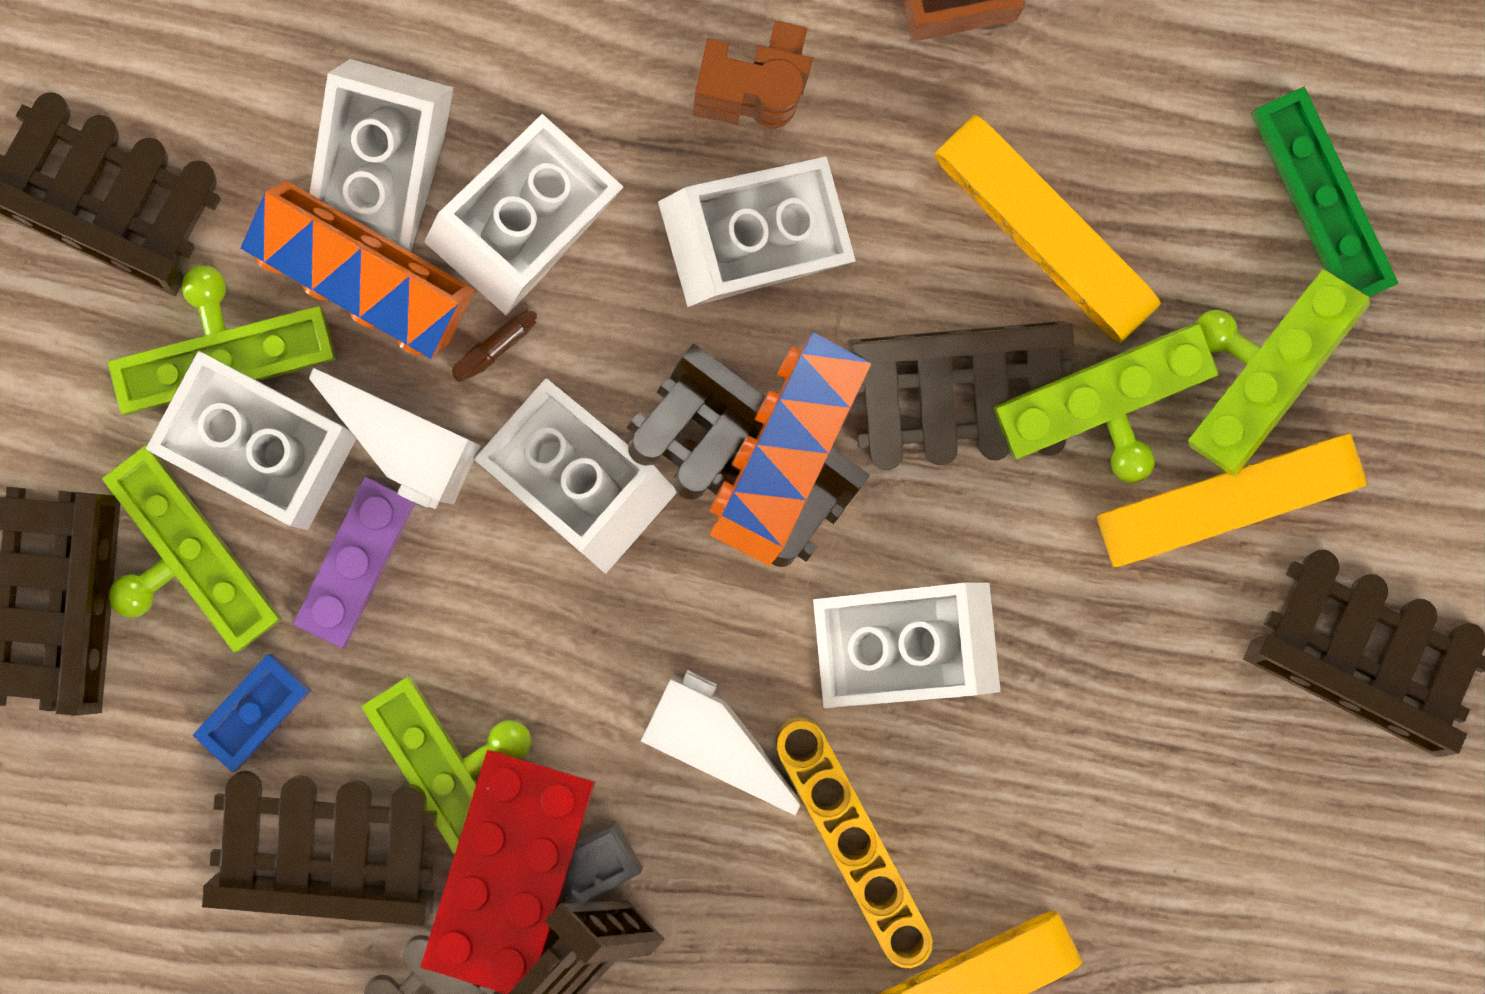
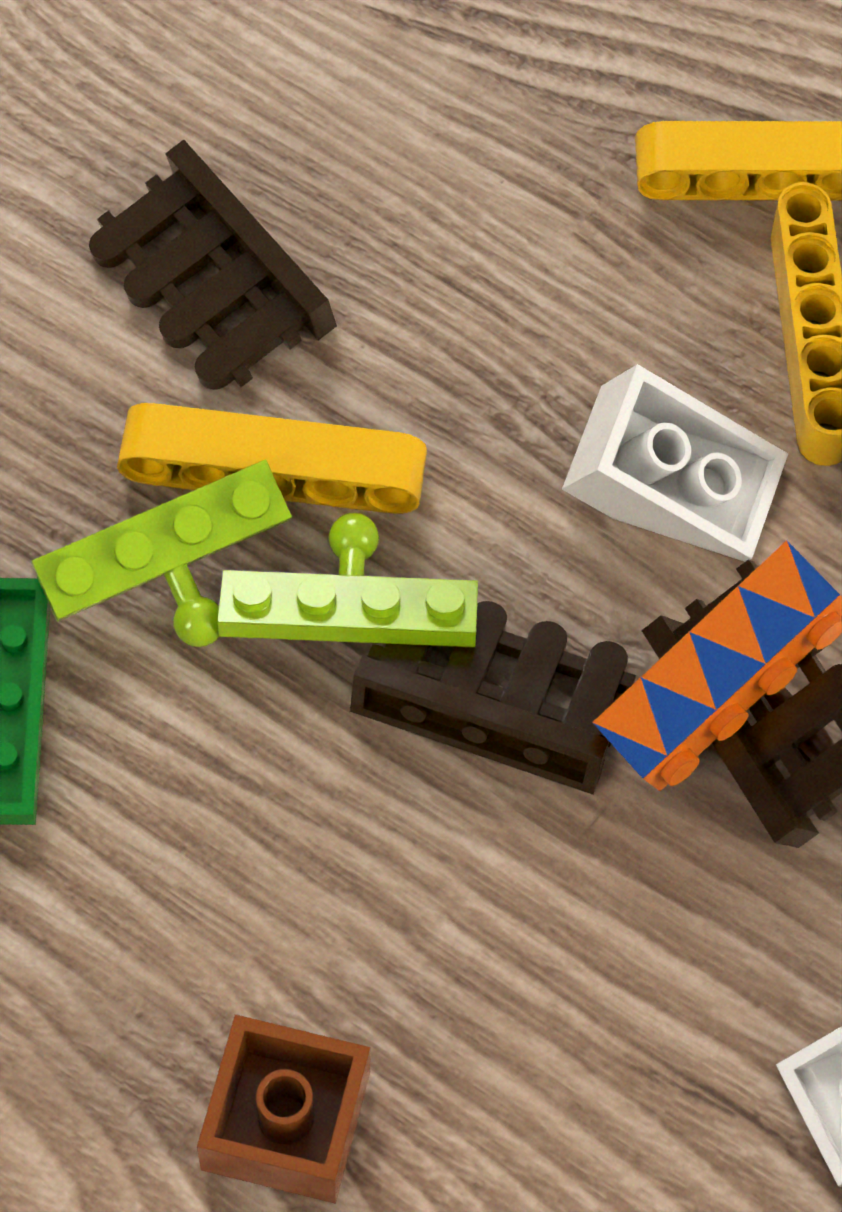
camera: 155 degrees left, 25 degrees down
(755, 230) = (649, 937): white slope -> none
(760, 89) = (574, 1075): dark orange hips -> none
(1047, 229) = (325, 802): yellow beam -> none

